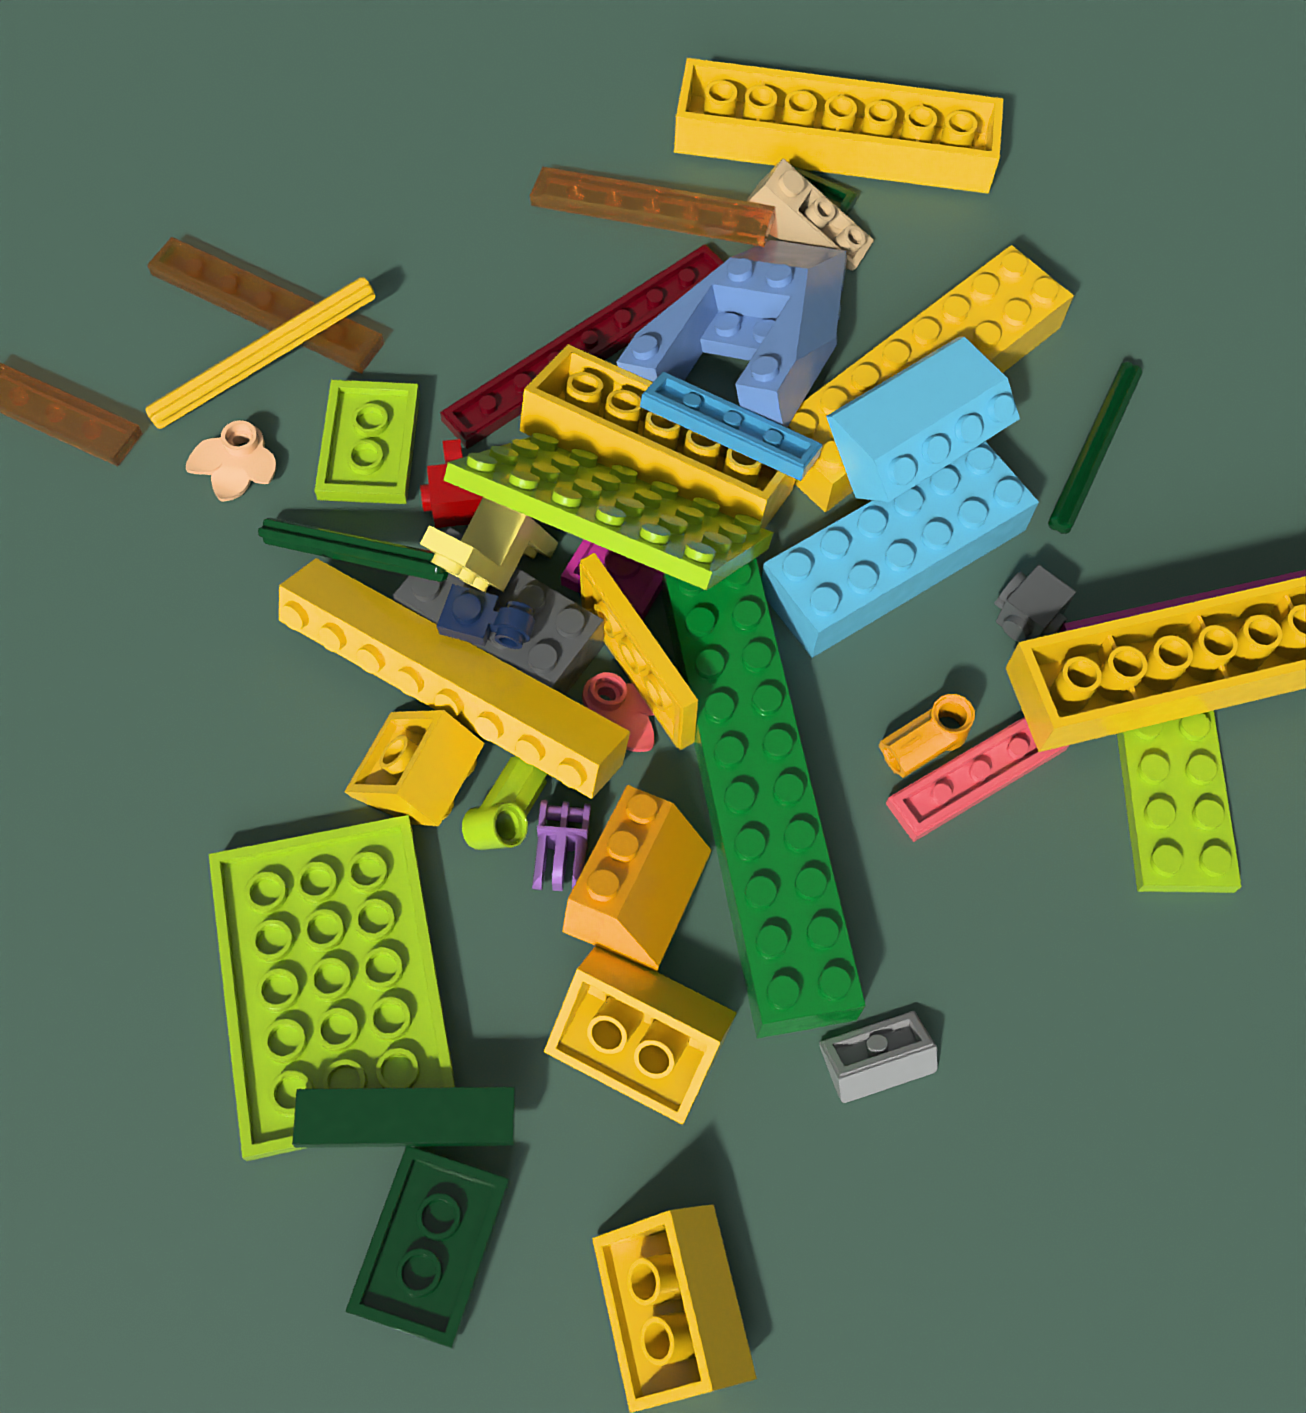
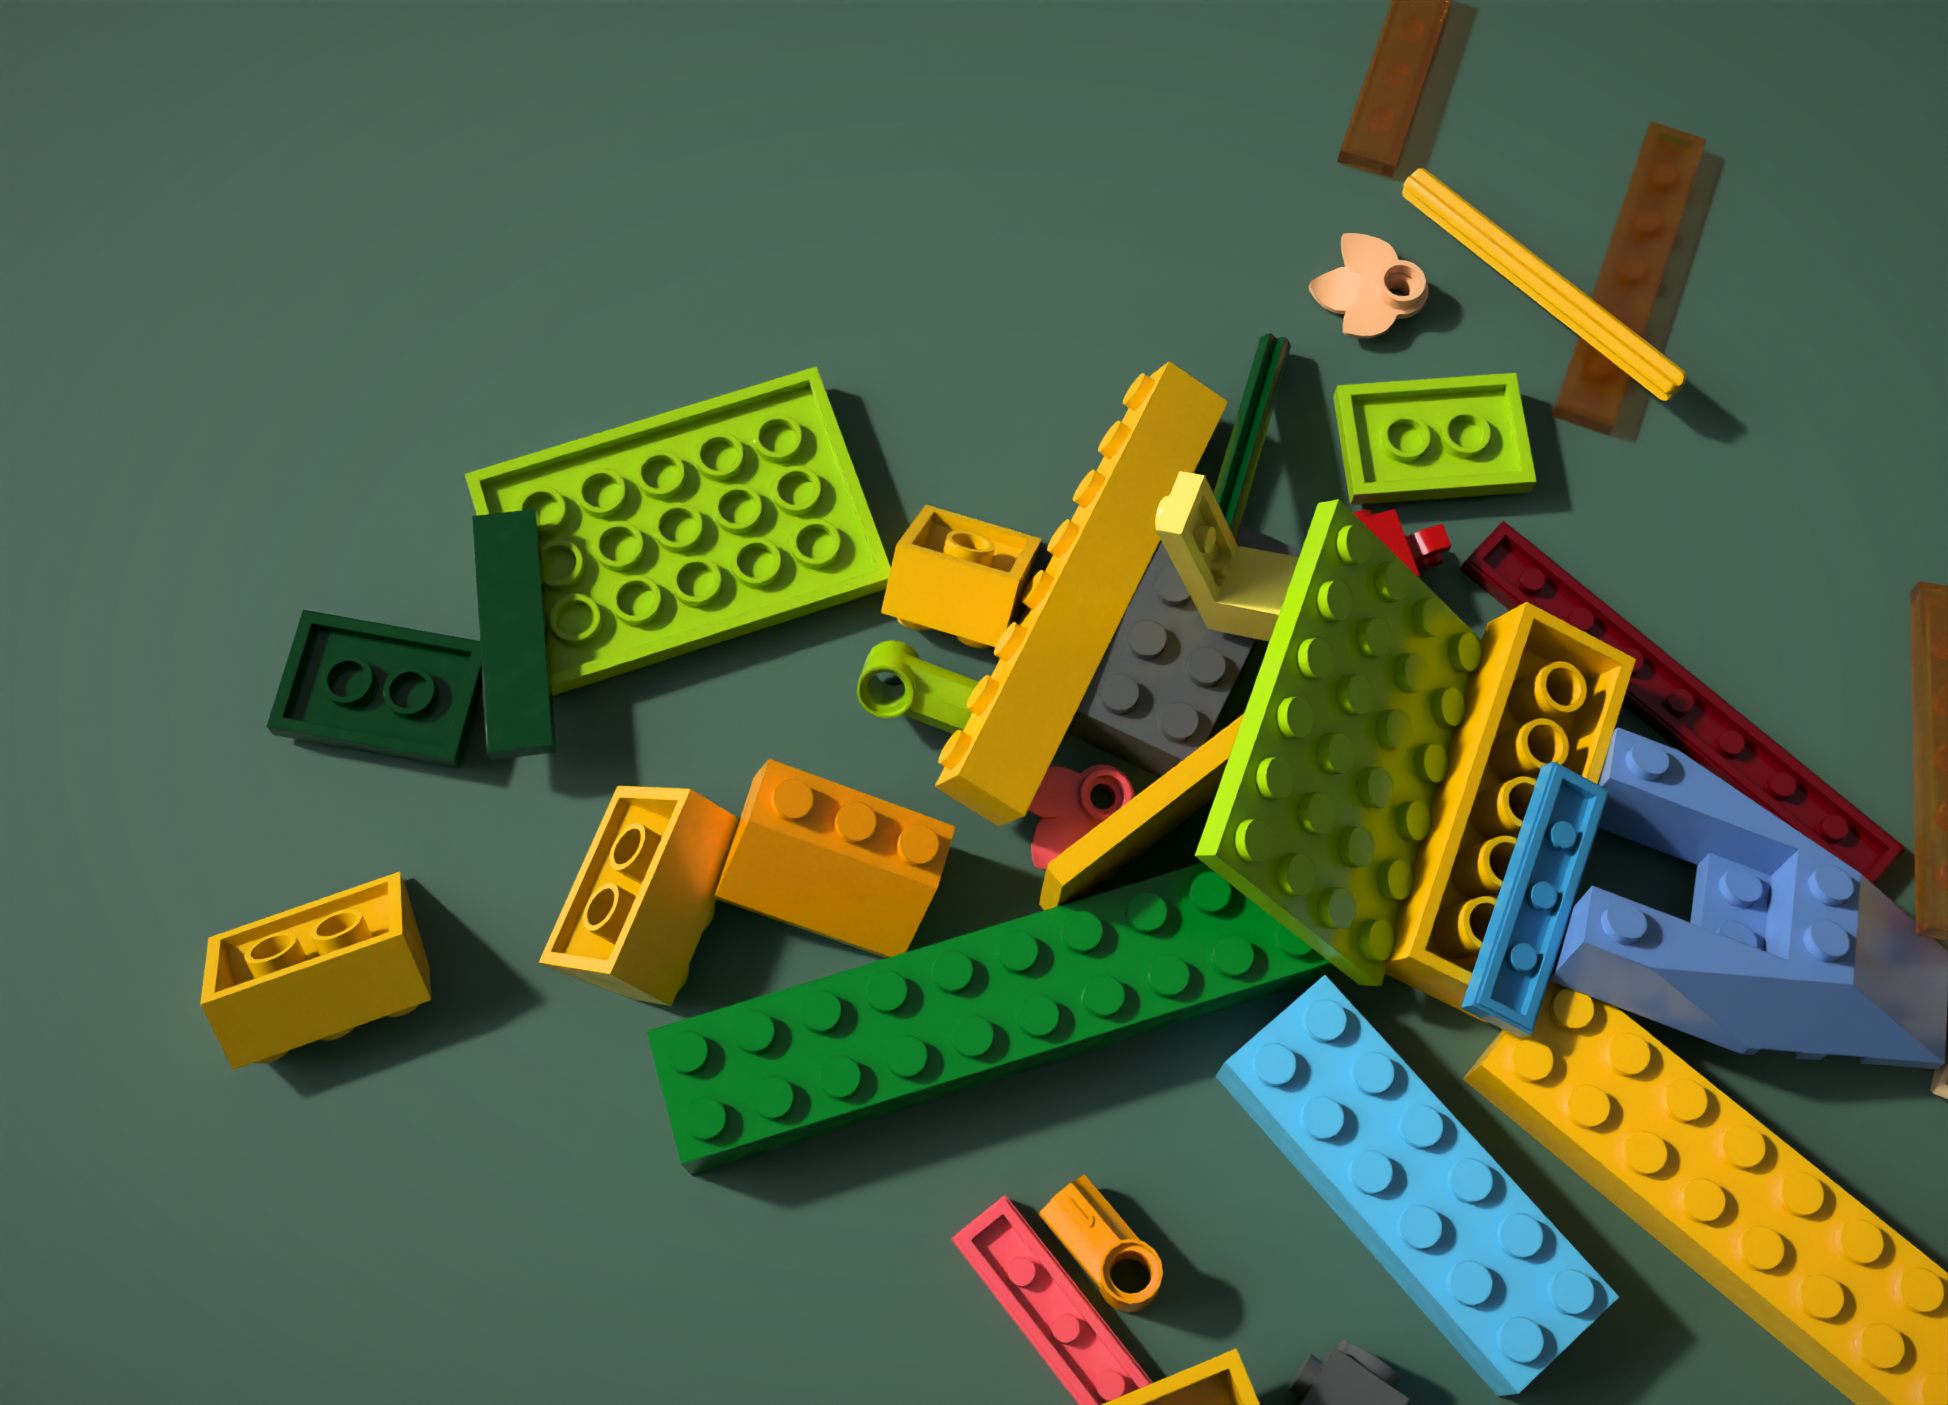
camera: 85 degrees right, 5 degrees up
(474, 613) = (1154, 598): dark blue plate -> none
(561, 840) = (867, 764): medium lavender arm -> none
(879, 1056) = (642, 1205): light grey slope -> none
(921, 420) = (1619, 1192): medium azure slope -> none

